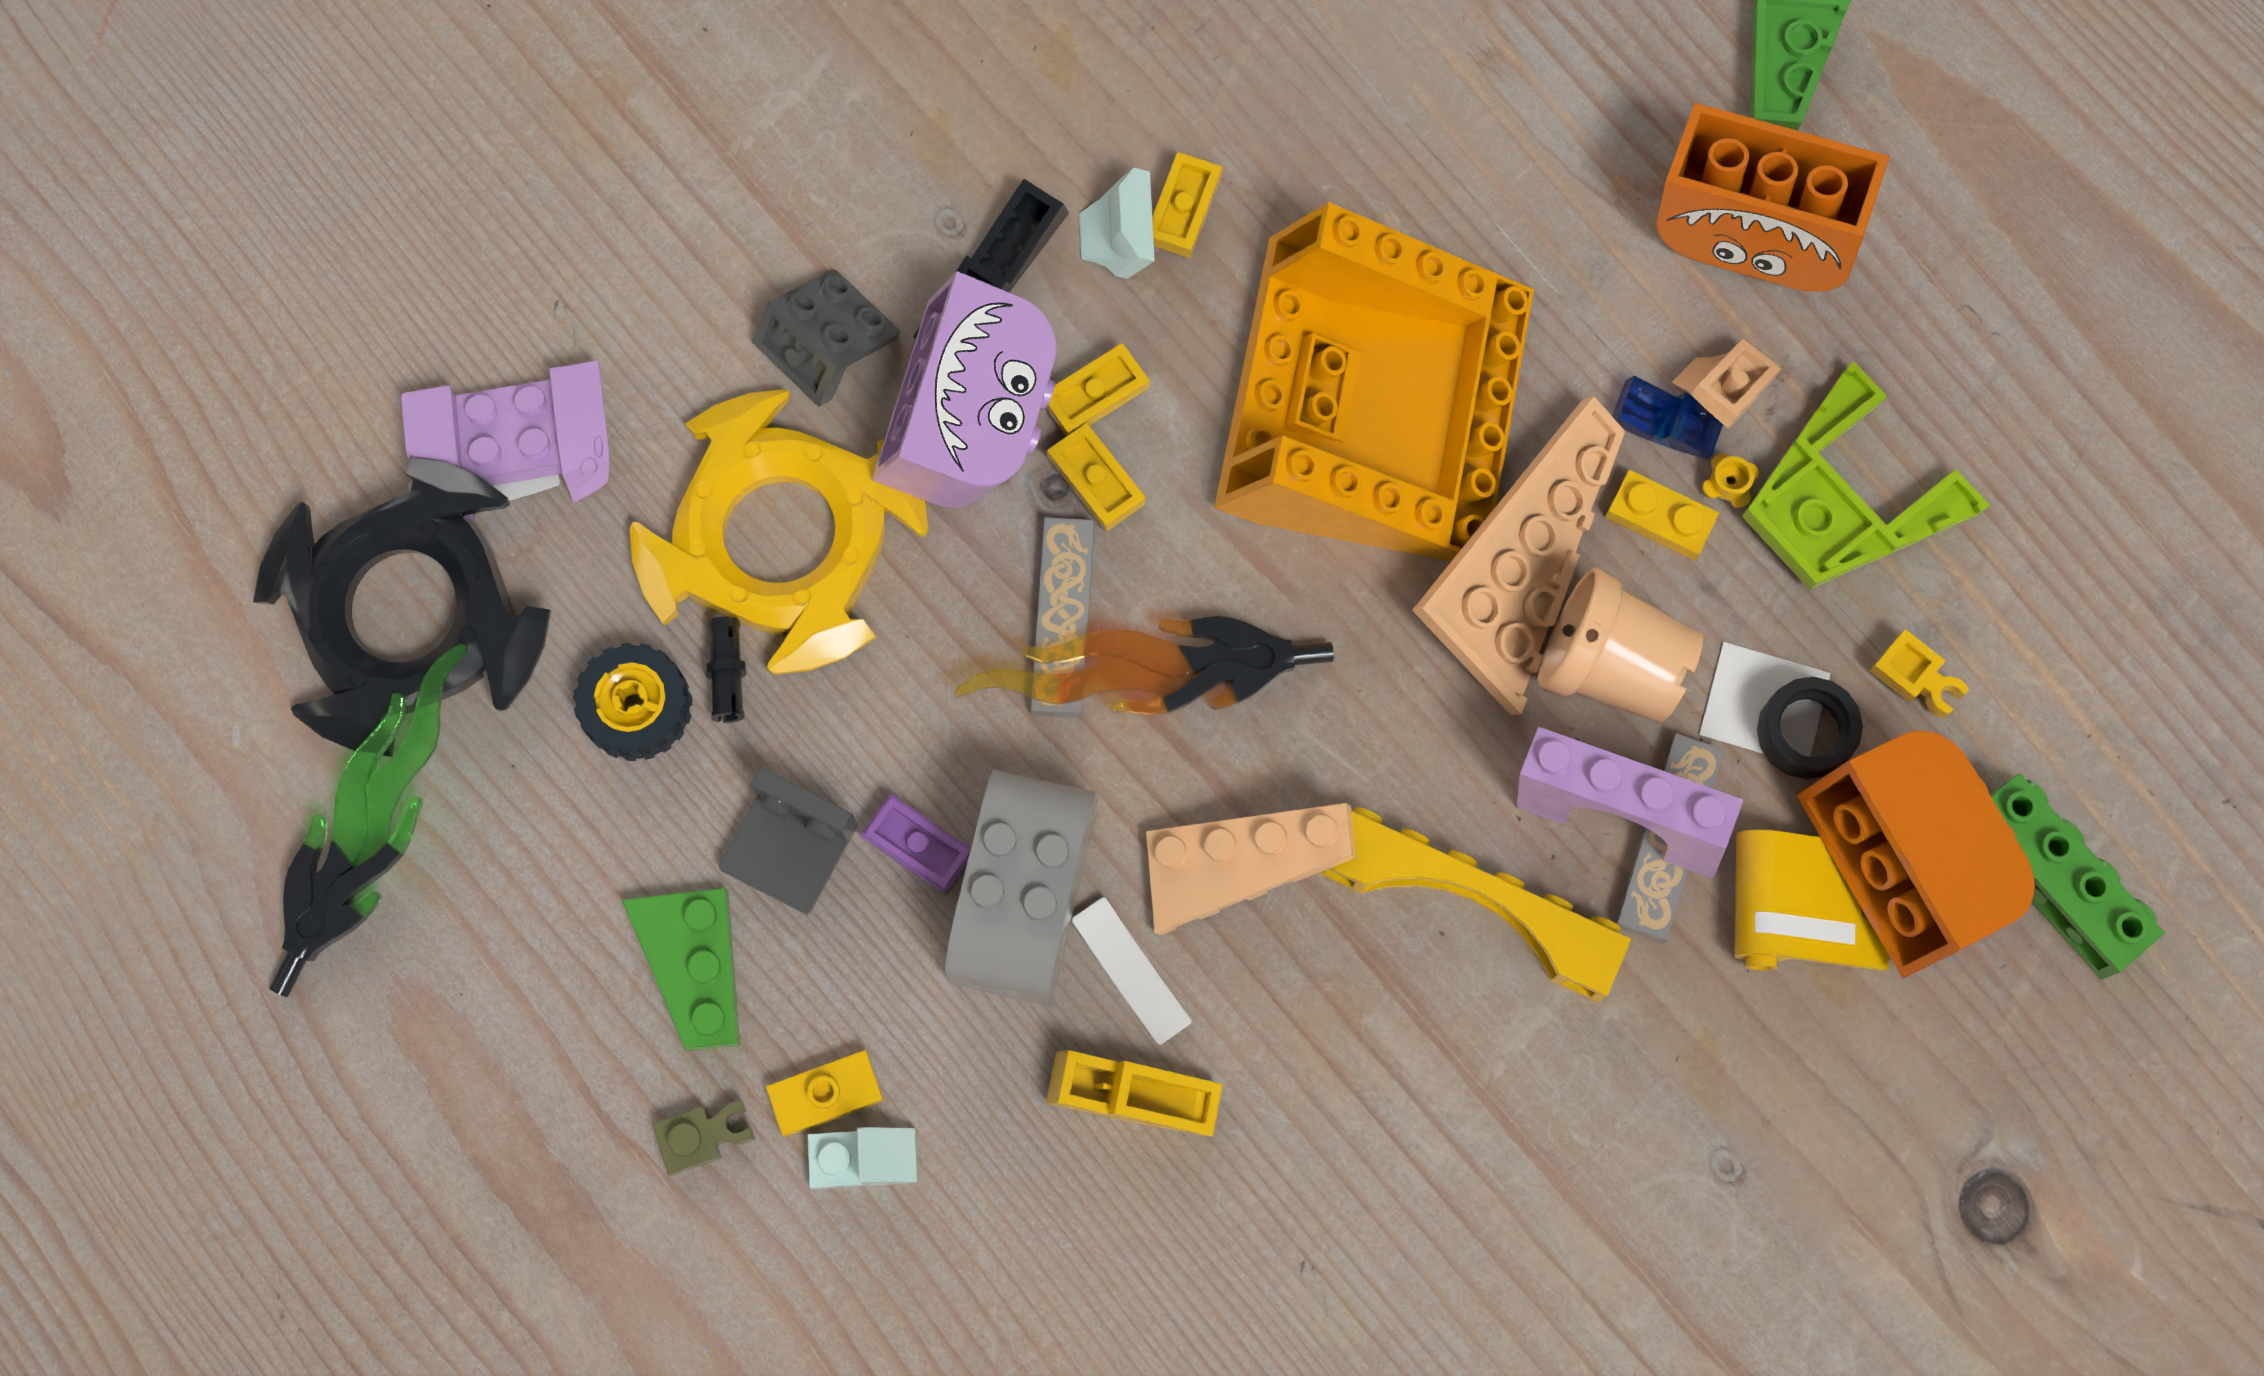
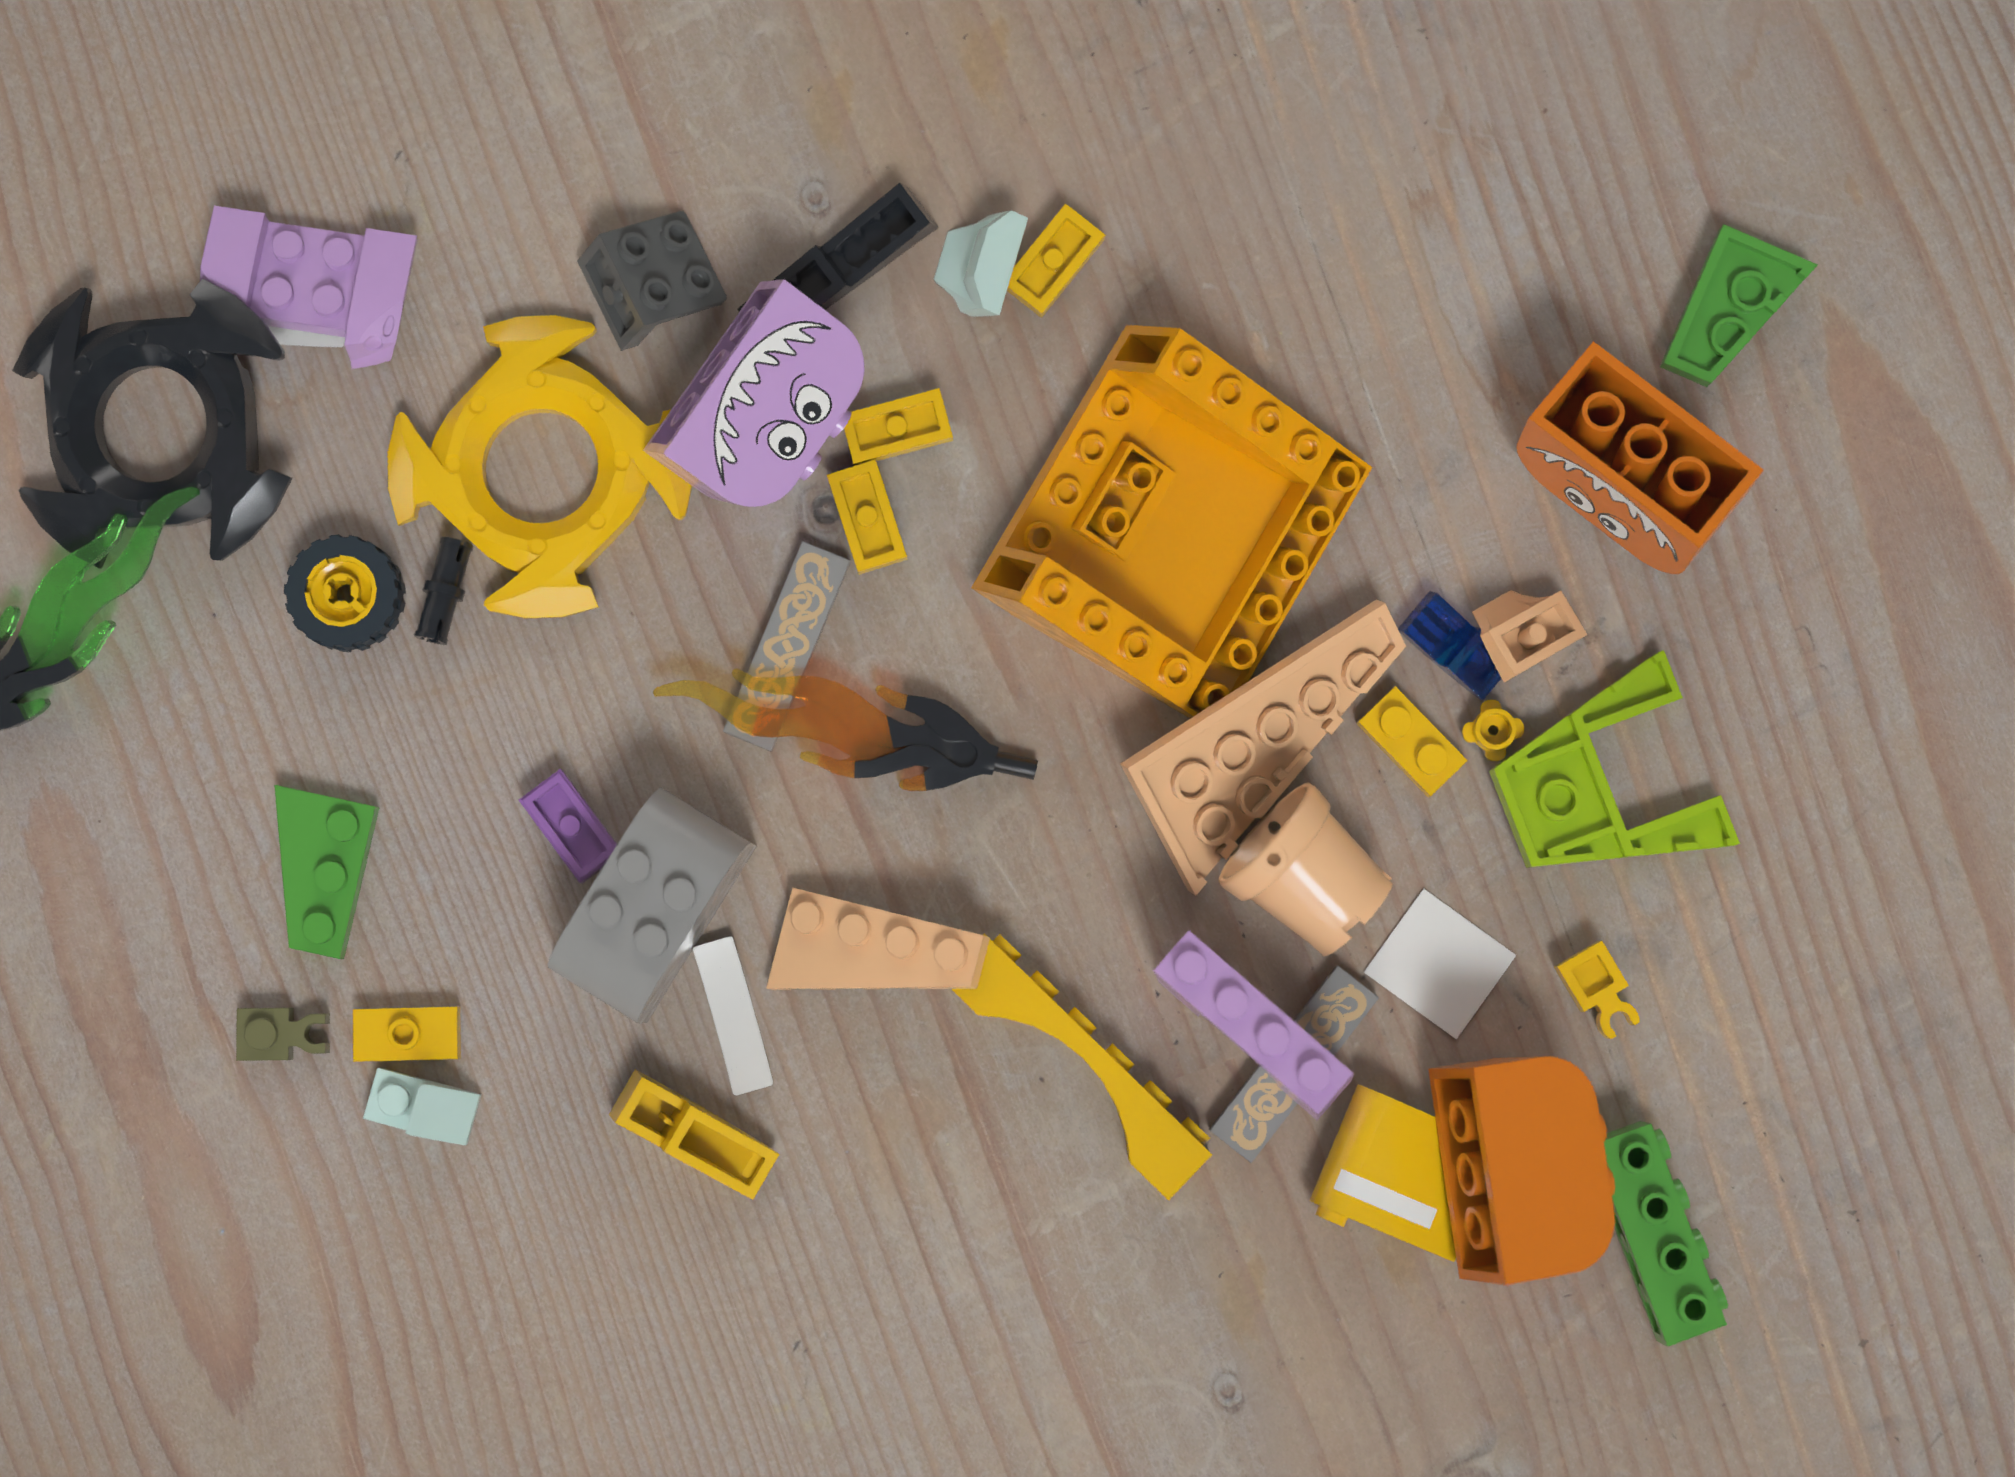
camera: 20 degrees right, 10 degrees up
(788, 842) = (447, 784): dark grey bracket -> none
(1833, 698) = (1509, 1005): black tyre -> none

